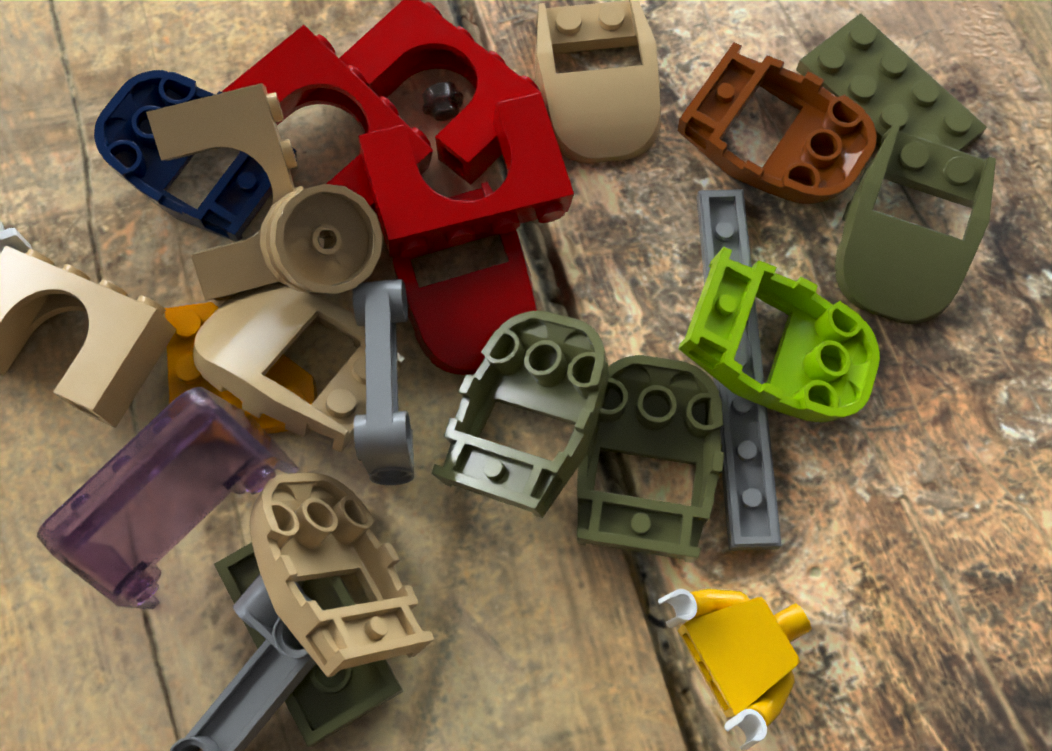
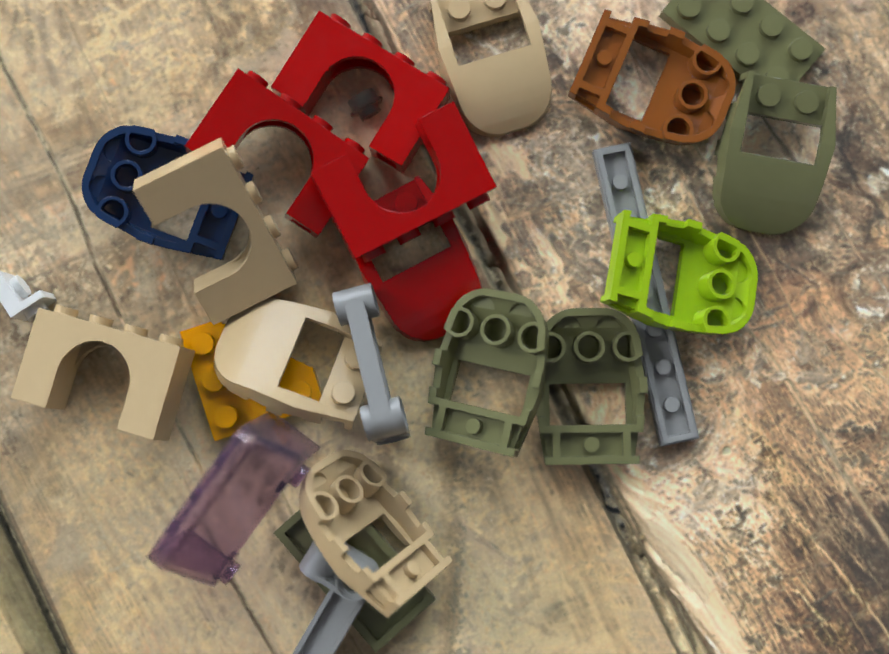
camera: 10 degrees left, 15 degrees up
(349, 236) = (299, 267): tan wheel -> none
(741, 652) = (681, 528): yellow torso -> none

